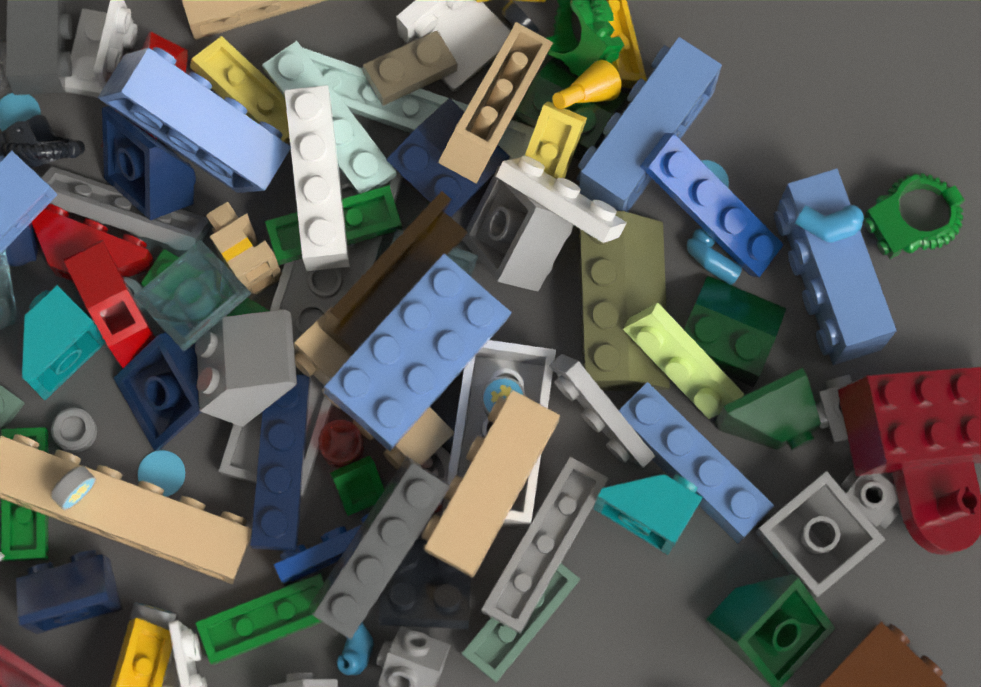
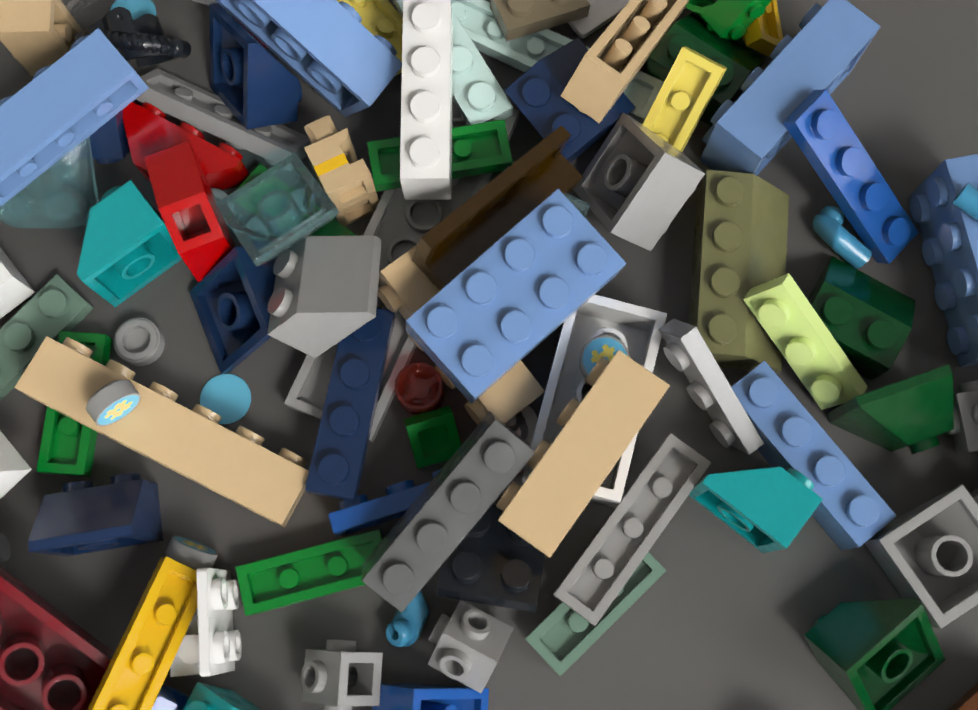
camera: 10 degrees right, 0 degrees up
(562, 198) = (692, 148): white plate -> none
(596, 84) = (739, 37): yellow cone -> none

